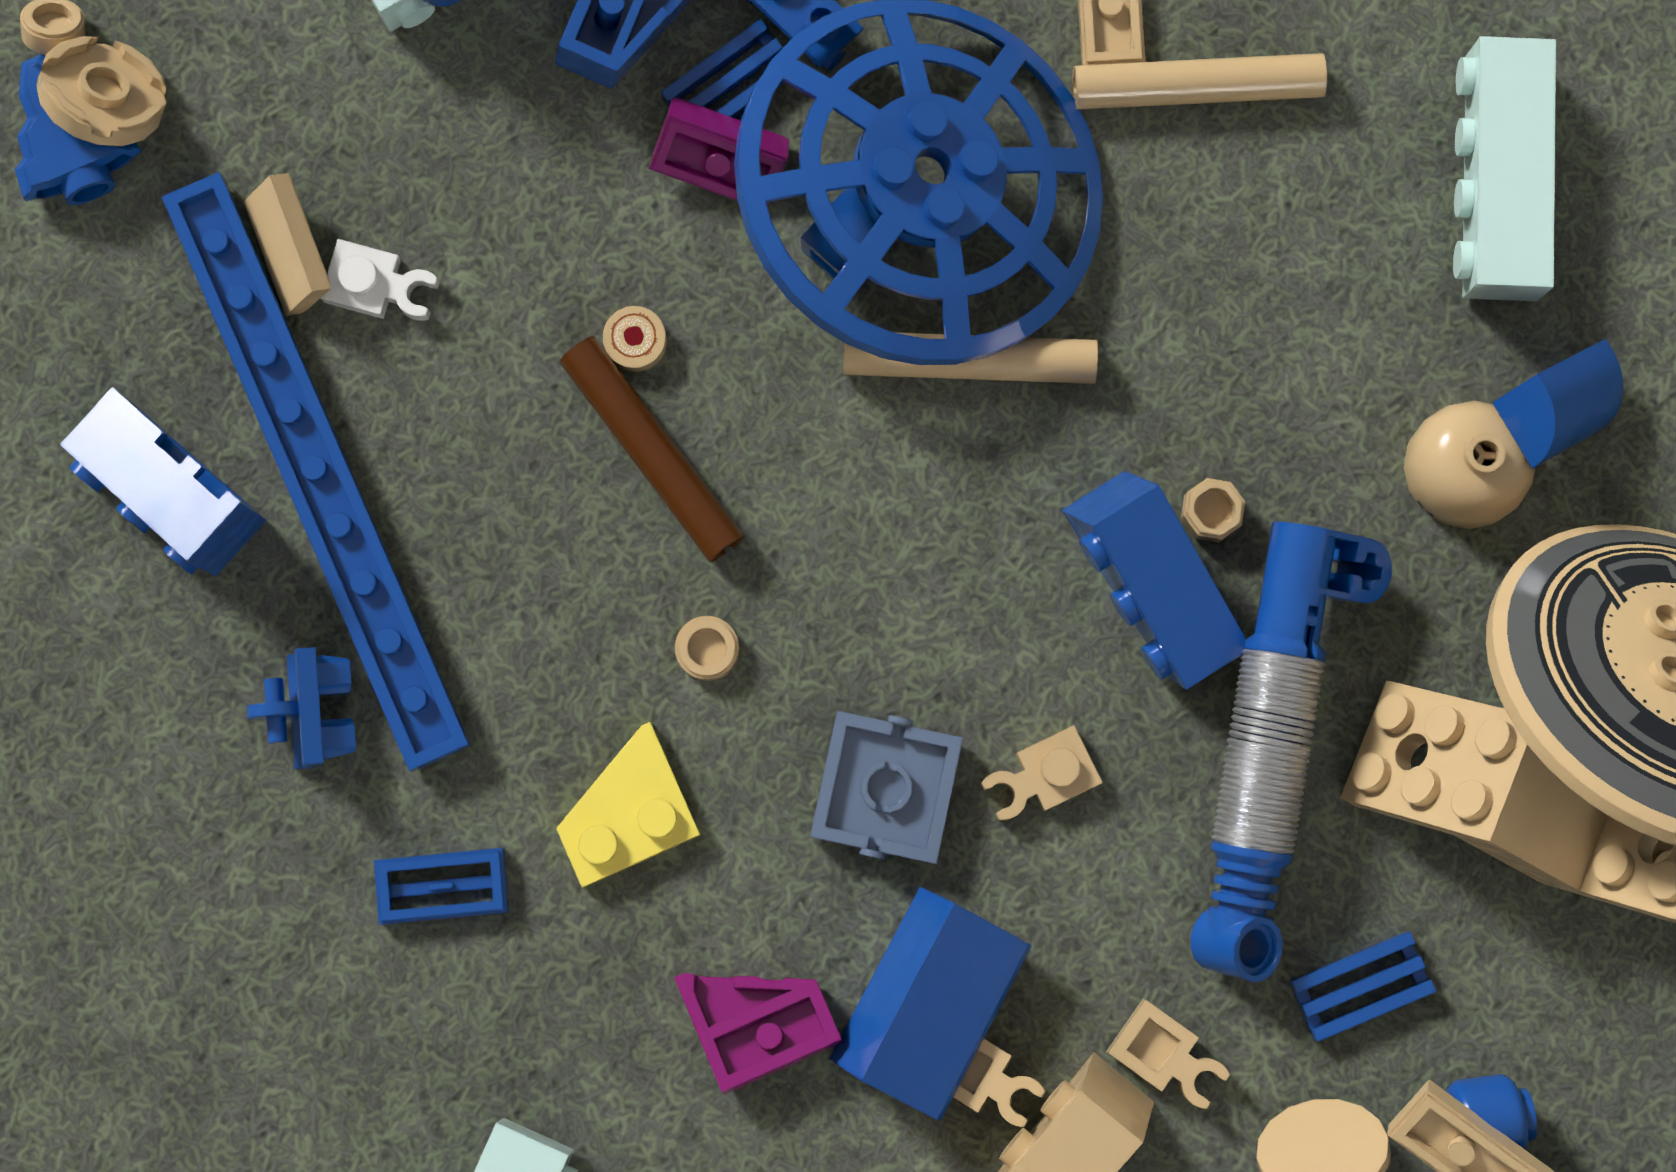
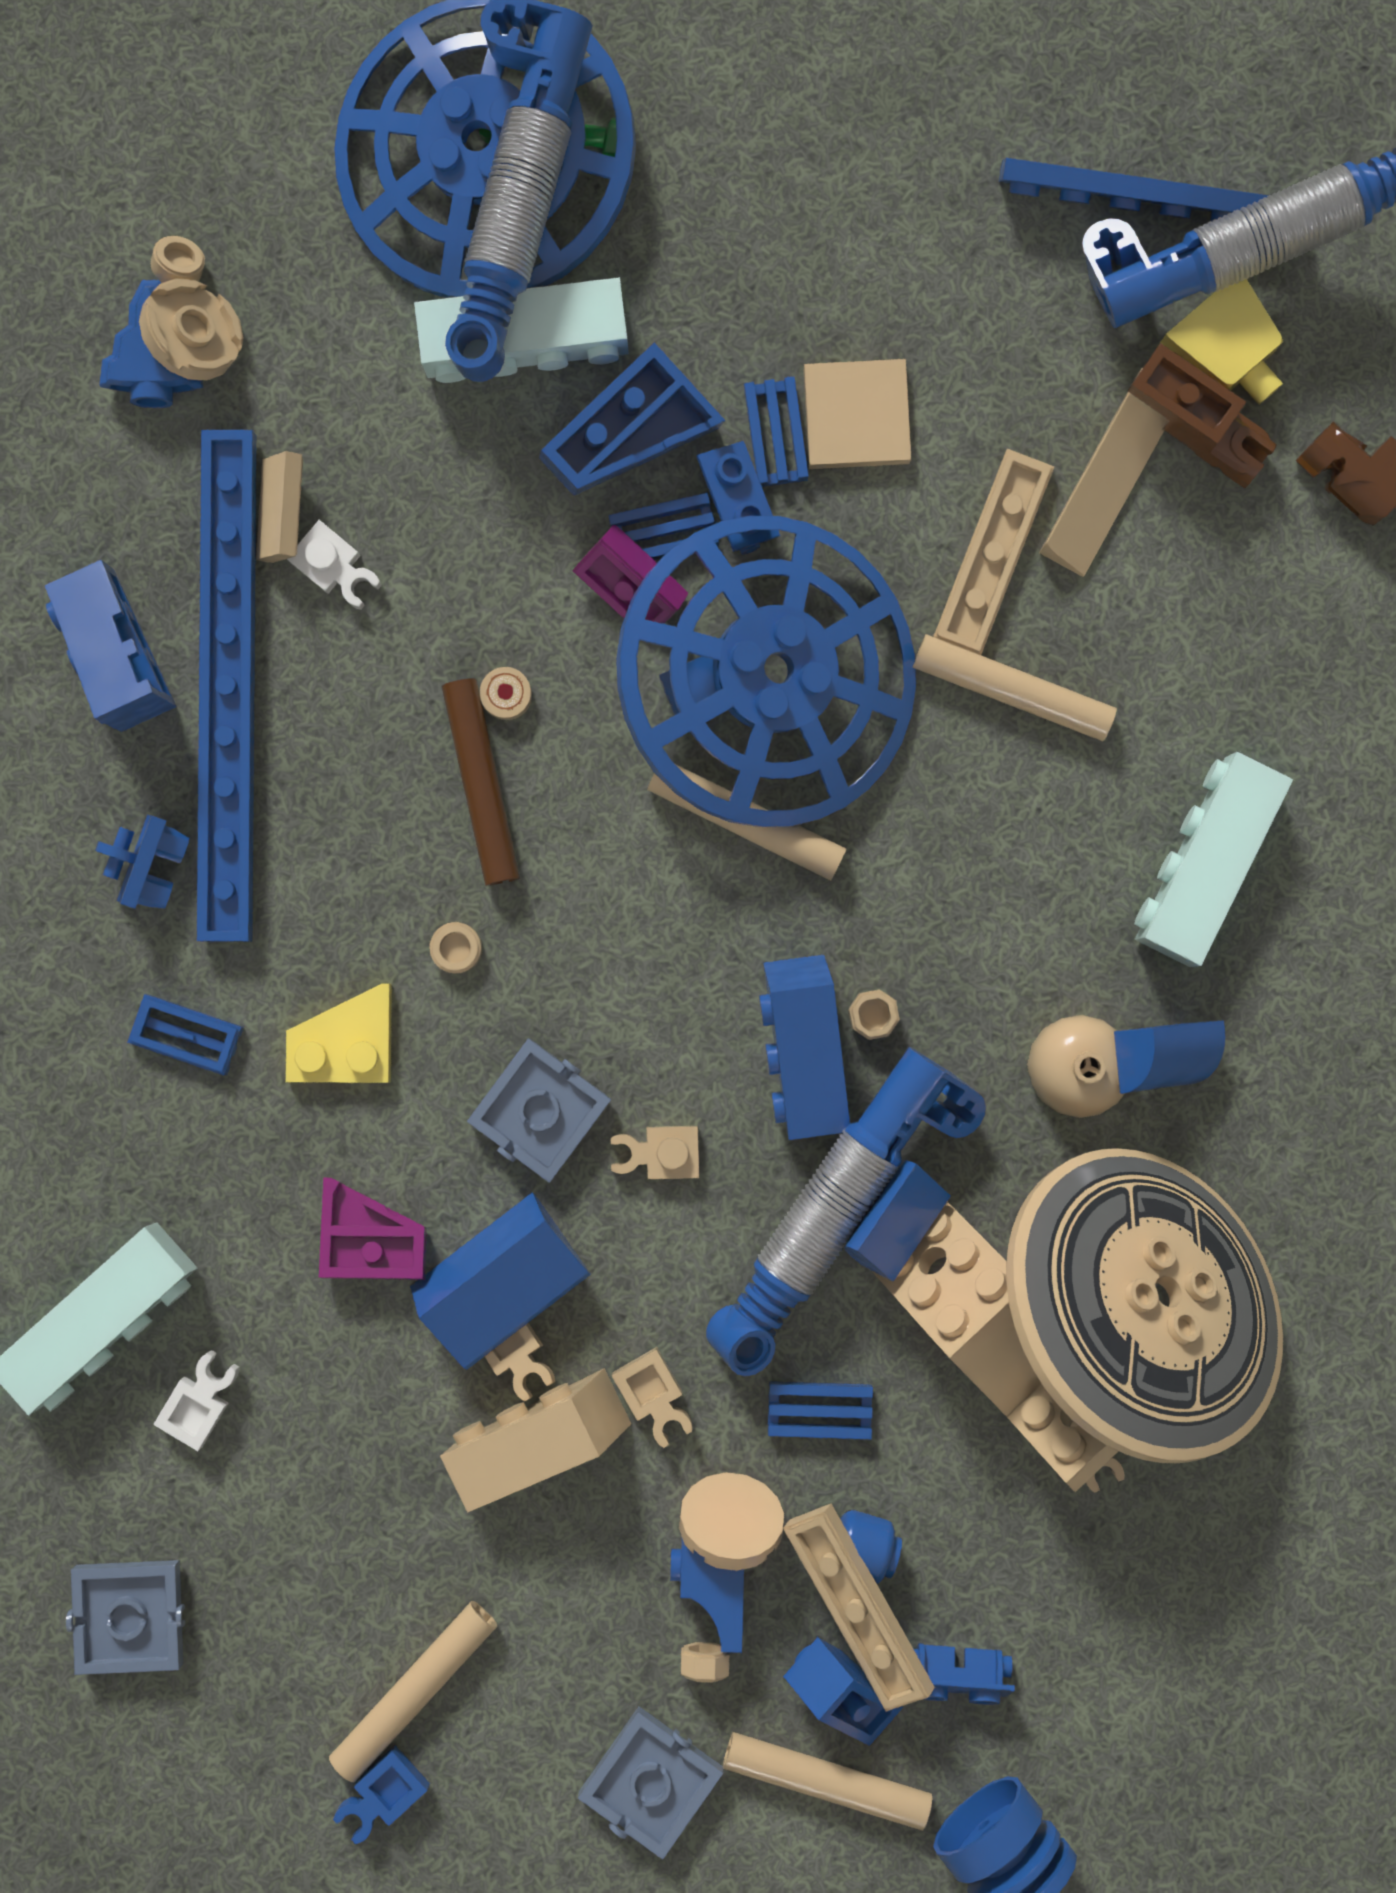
camera: 25 degrees right, 5 degrees up
(1350, 726) = (897, 1221): none -> blue brick

